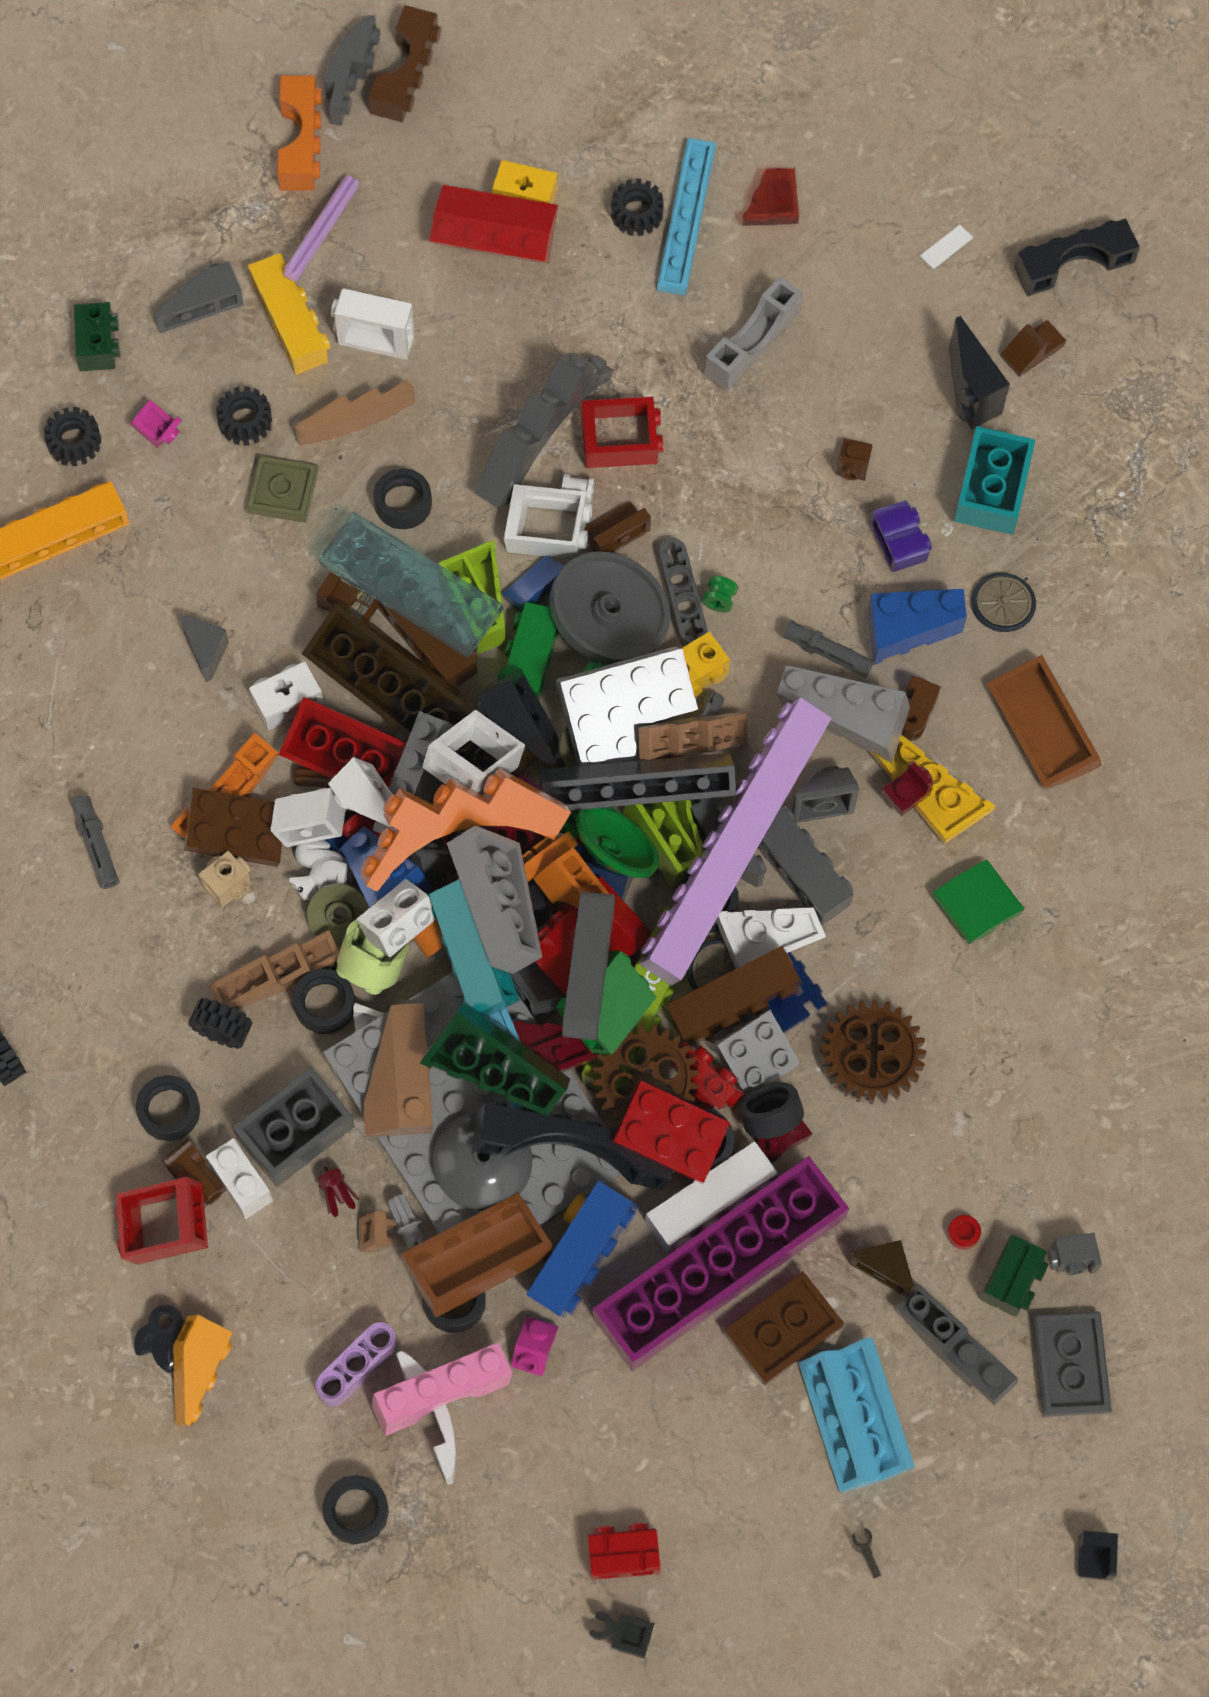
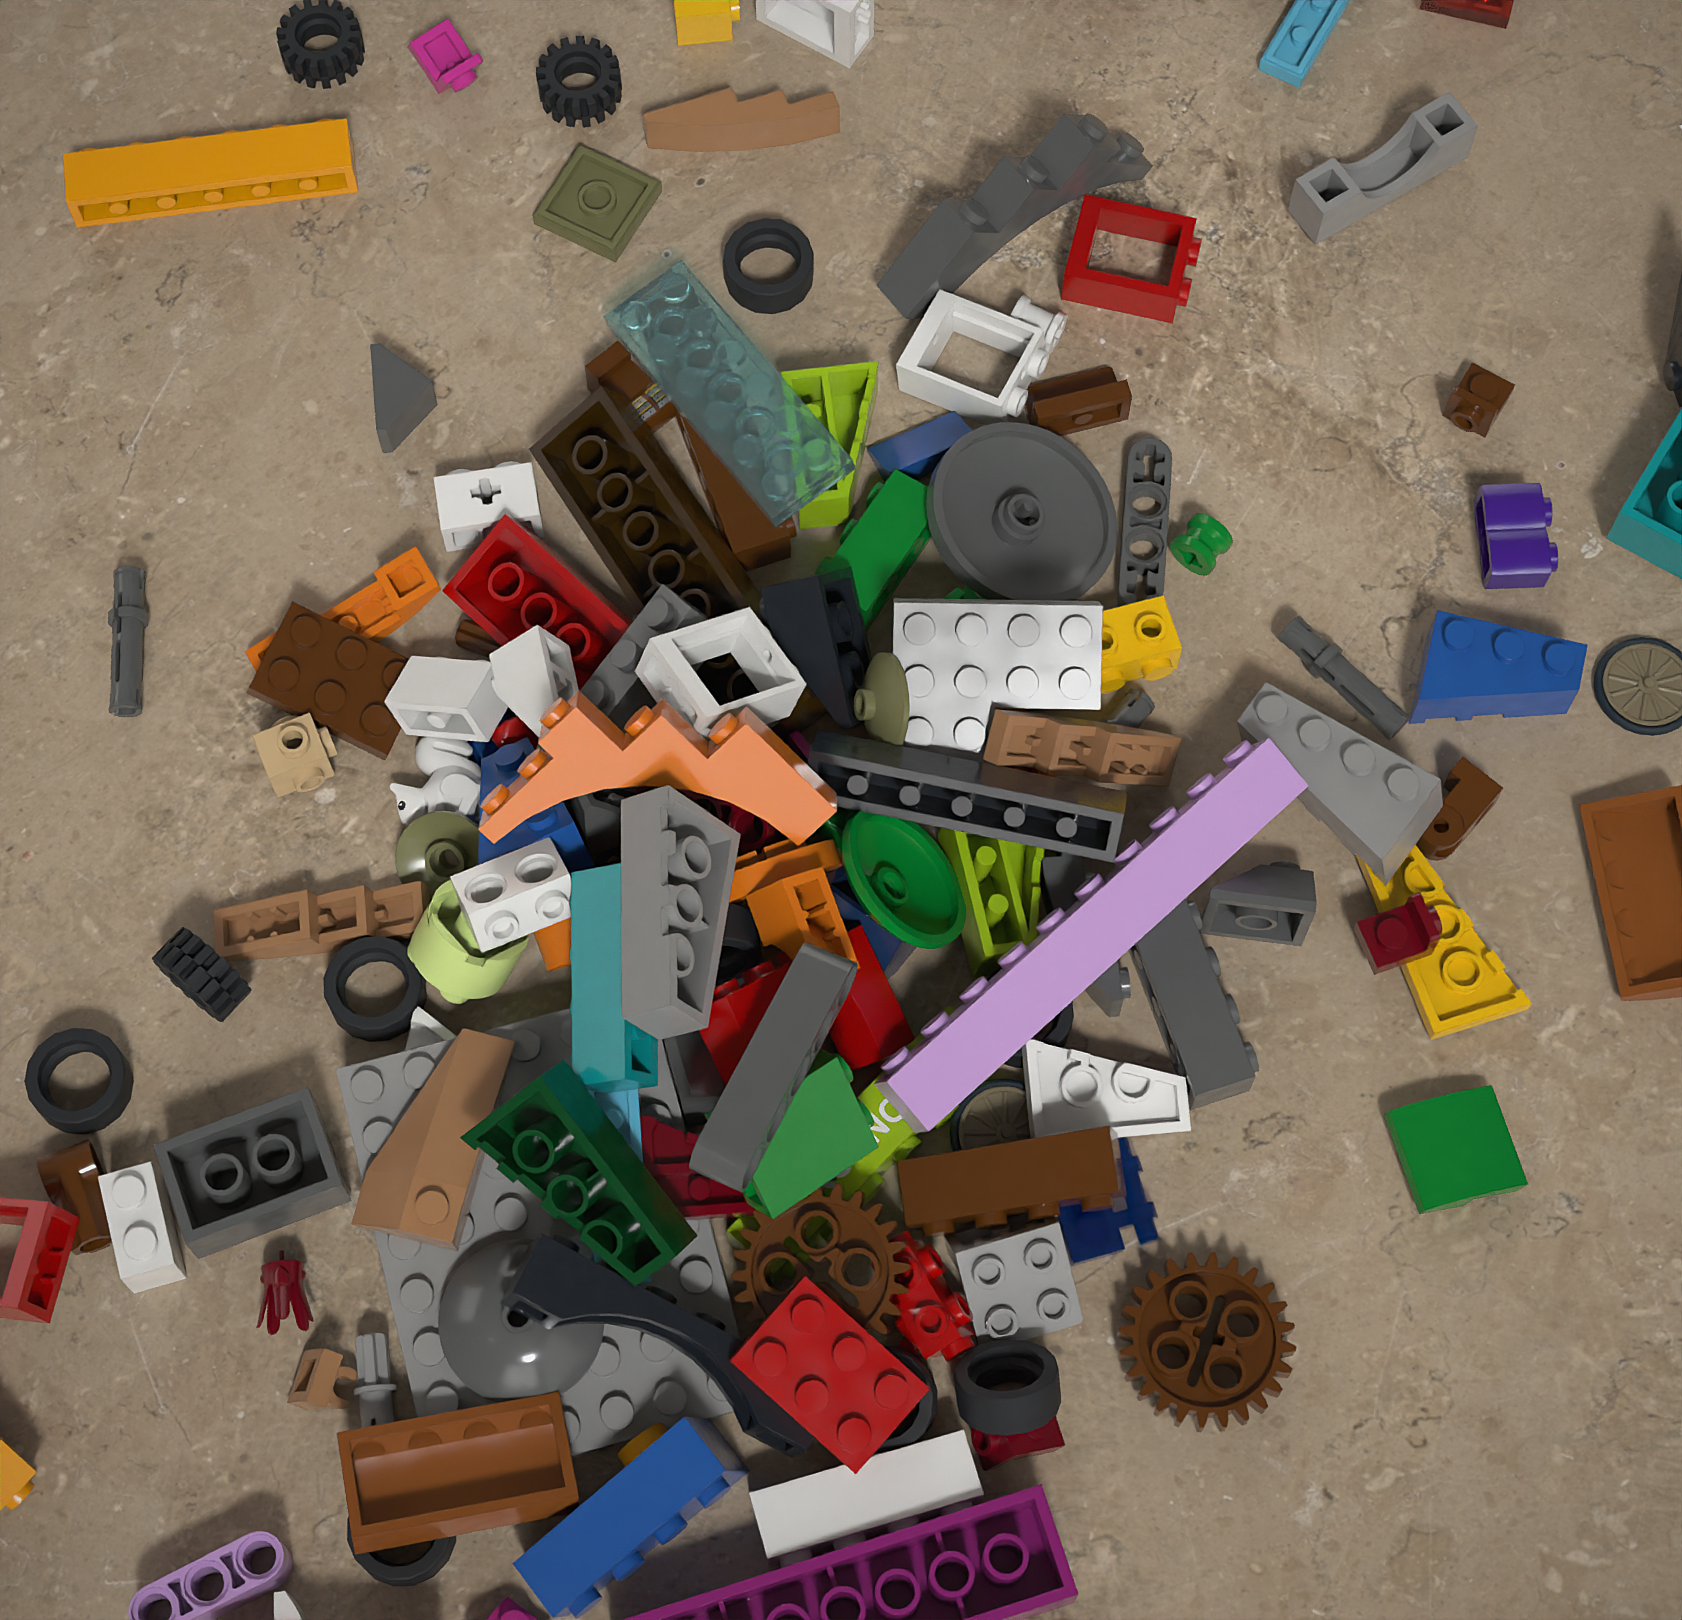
camera: 20 degrees right, 0 degrees up
(571, 741) = (884, 700): none -> olive dish

